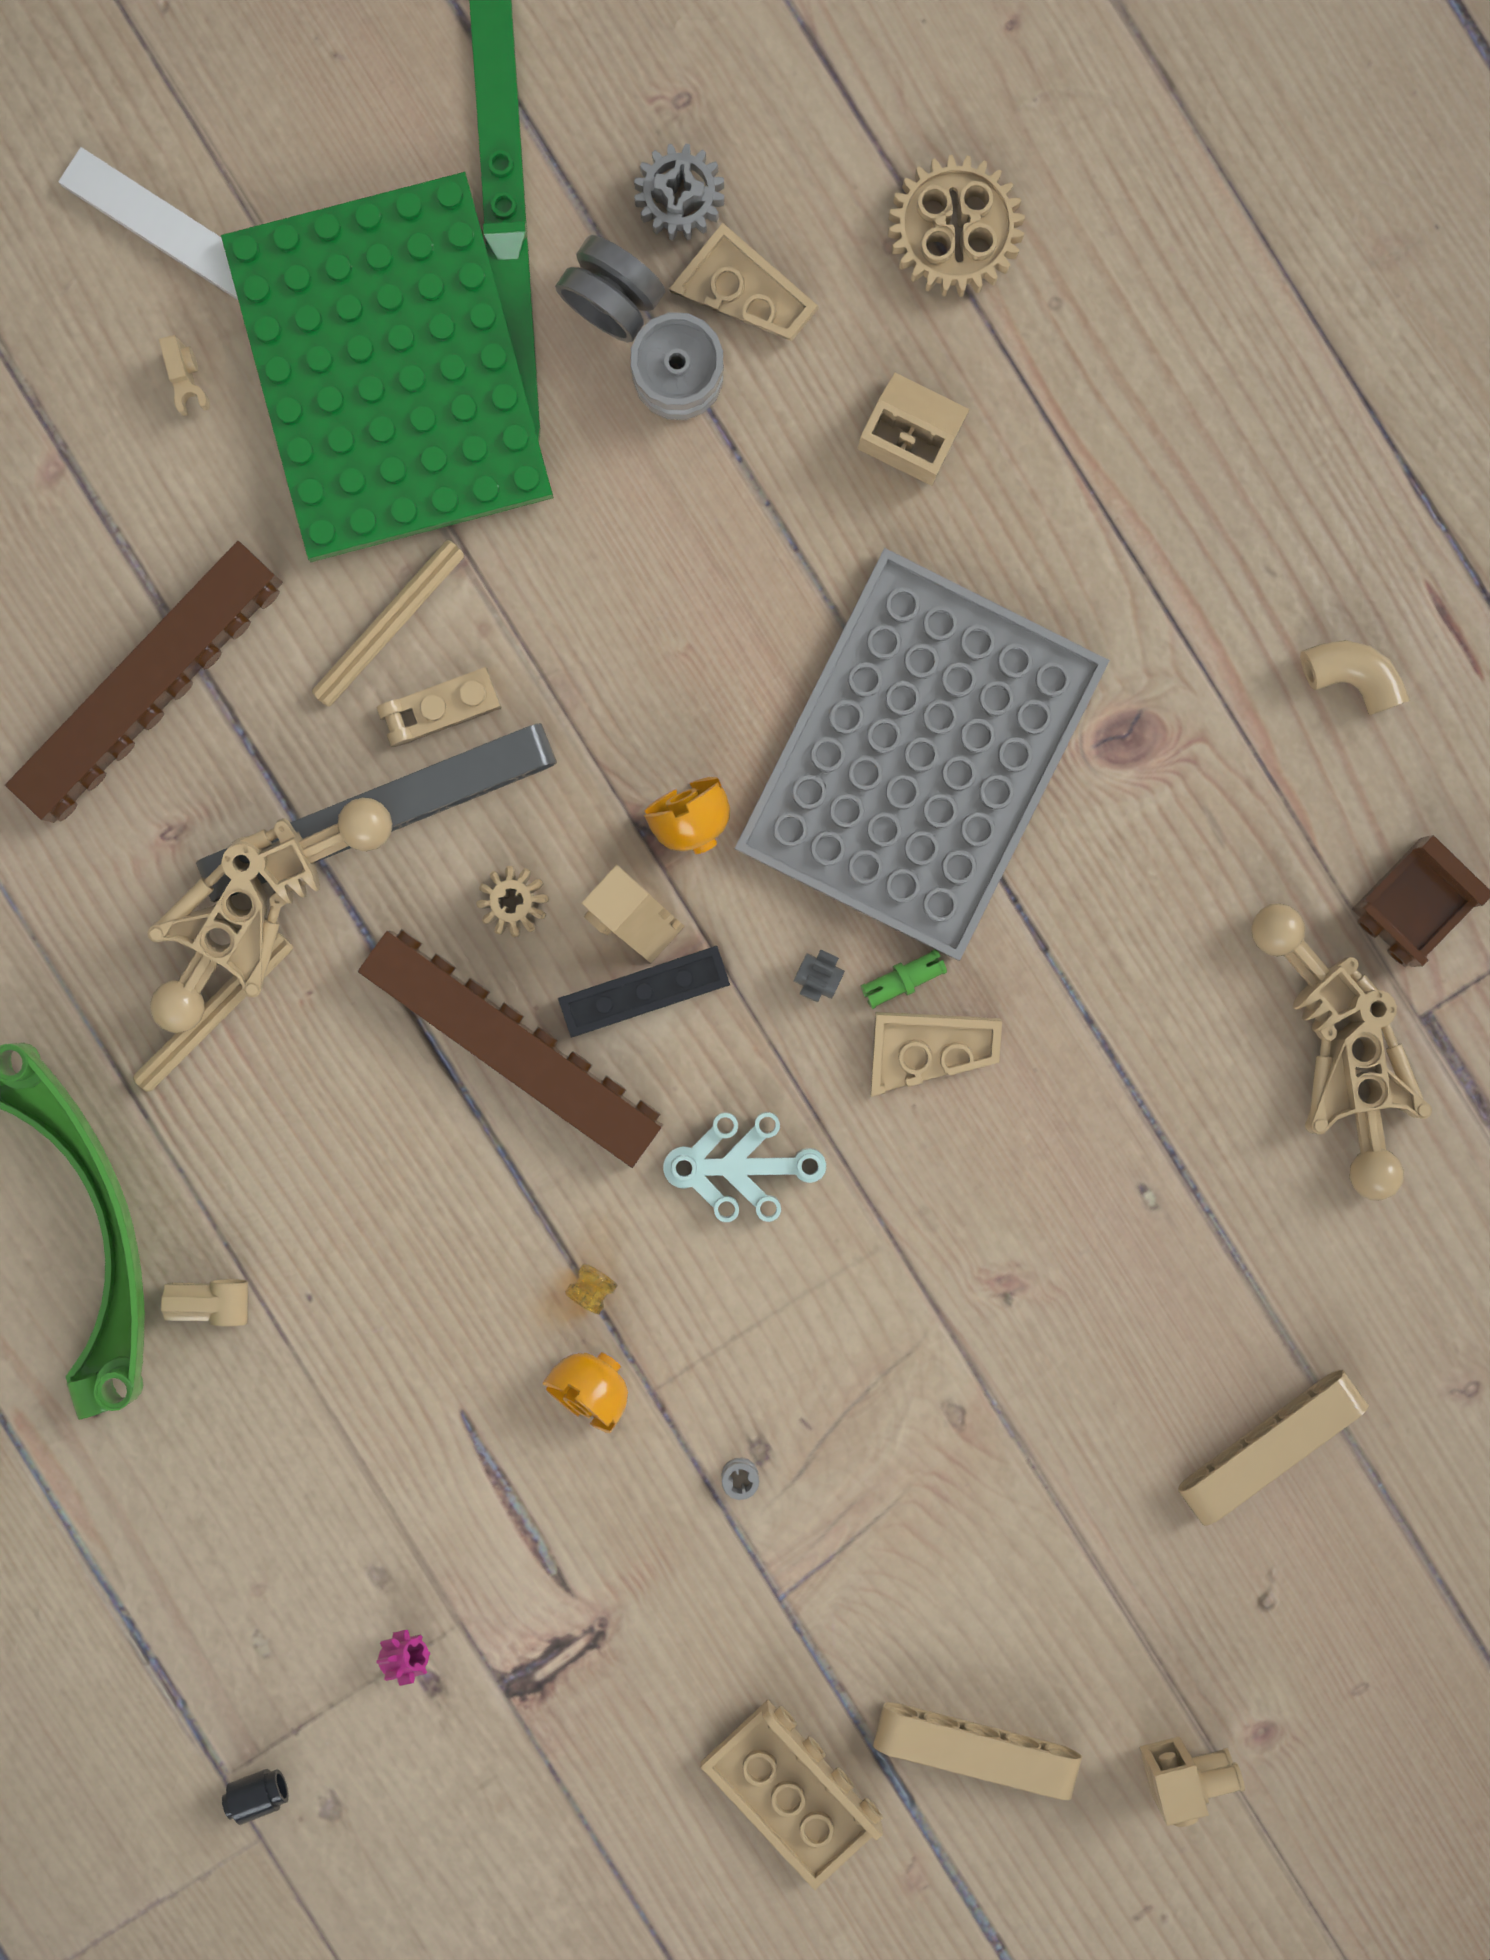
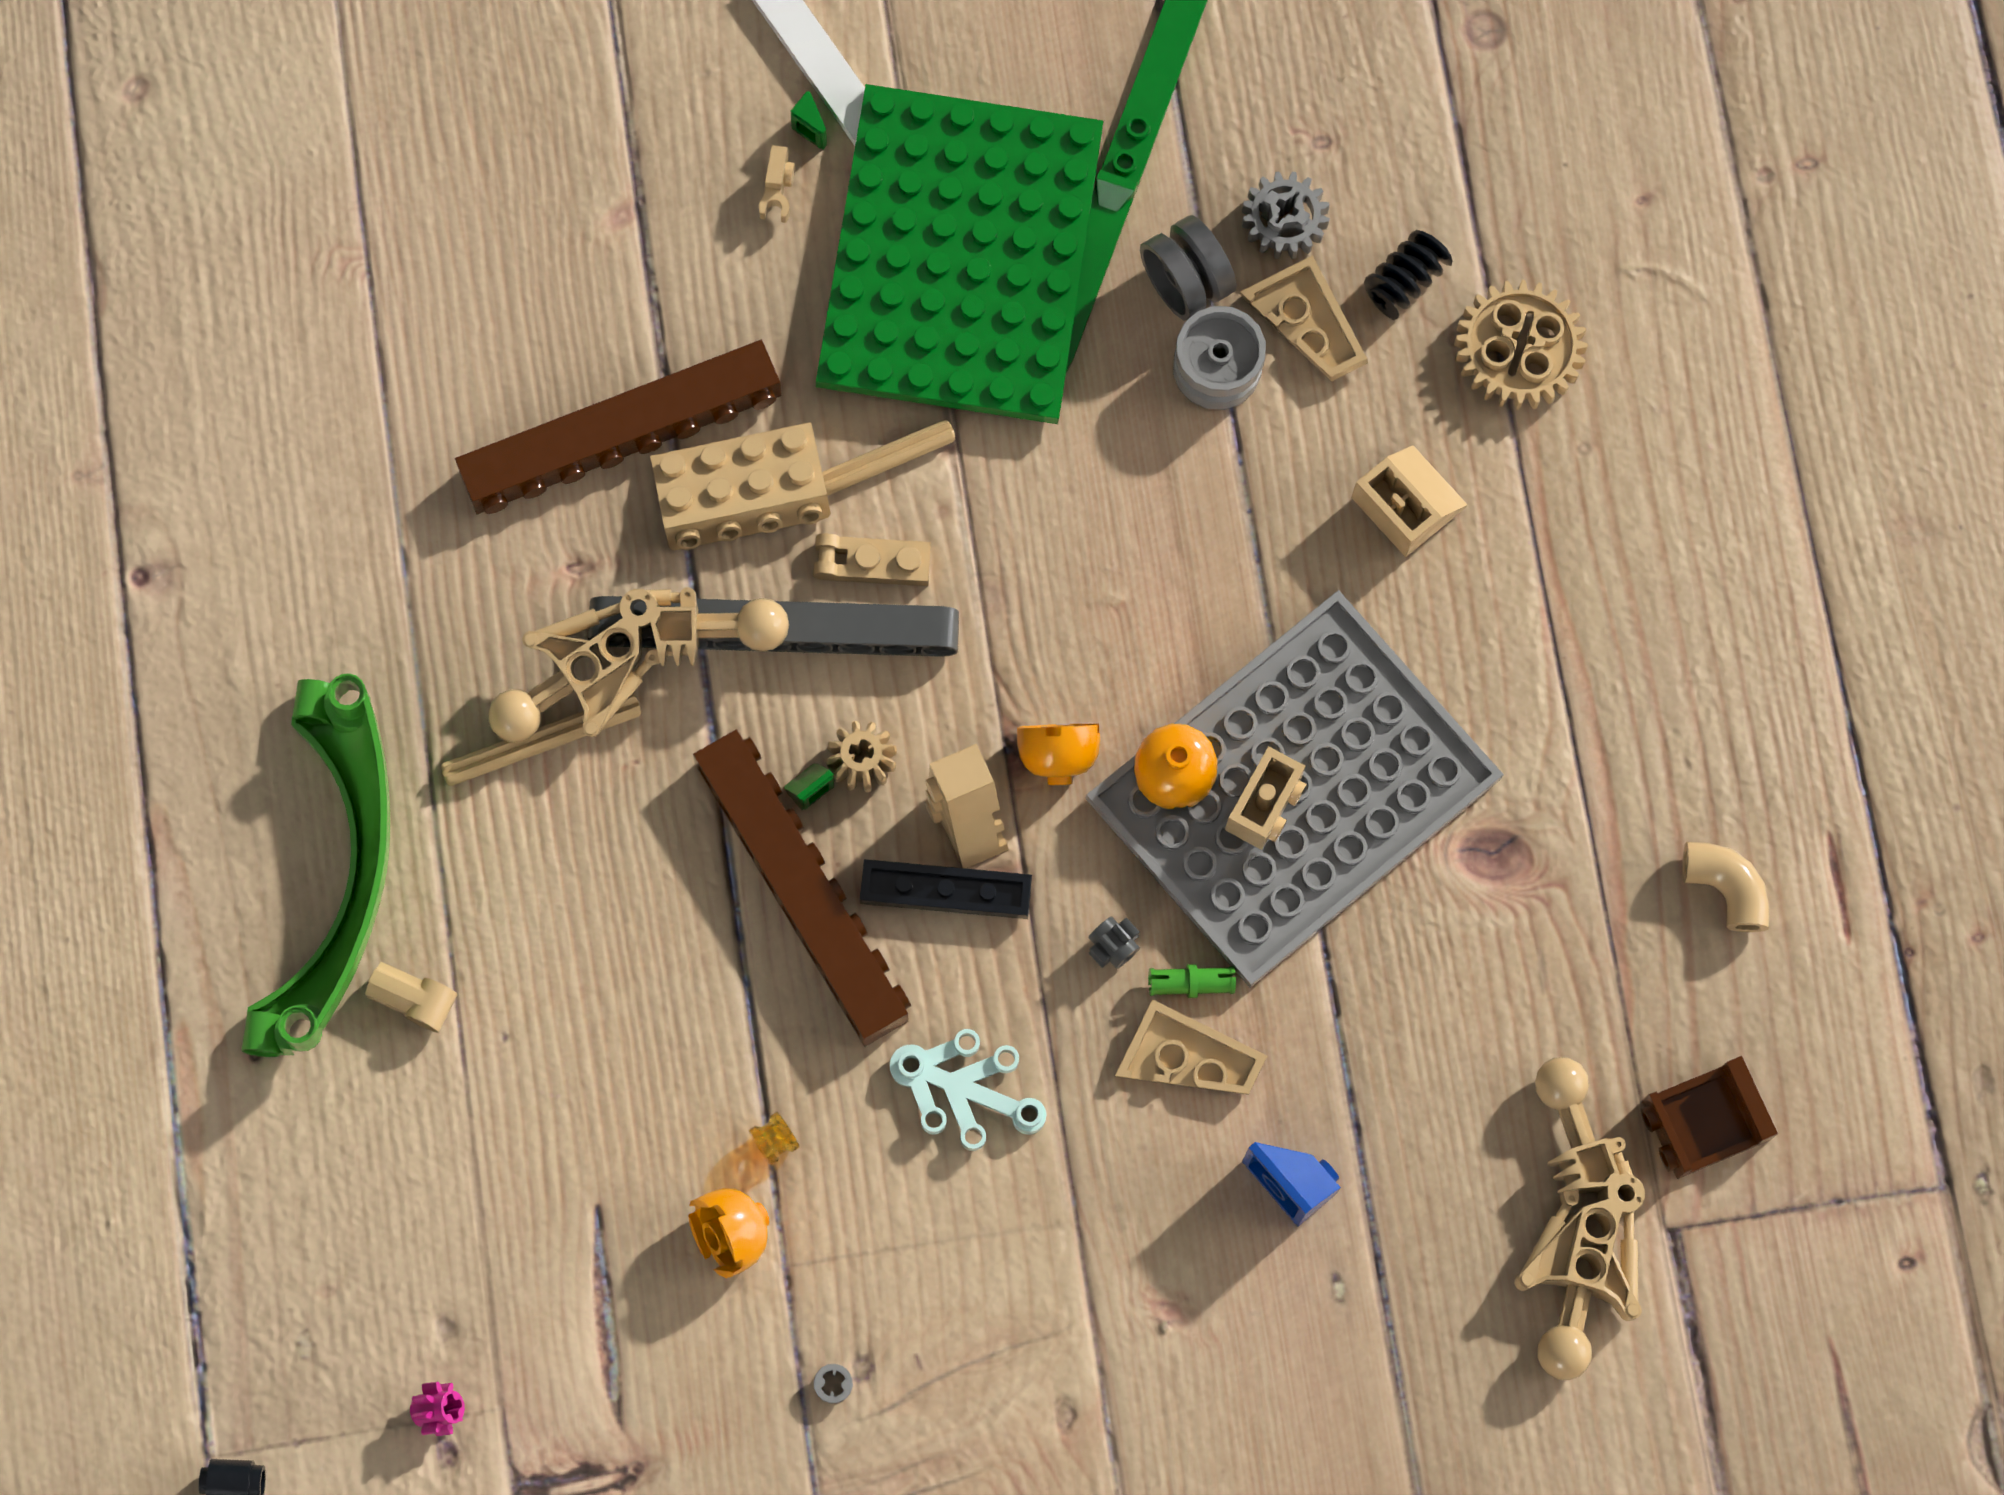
camera: 20 degrees right, 15 degrees down
(182, 297) = (808, 122): none -> green slope
(284, 691) = (740, 487): none -> tan bracket
(477, 947) = (810, 785): none -> green slope
(805, 787) = (1175, 766): none -> light orange cylinder
(816, 200) = (1405, 270): none -> black piece
(903, 785) = (1265, 798): none -> tan brick
(1076, 1123) = (1292, 1179): none -> slope

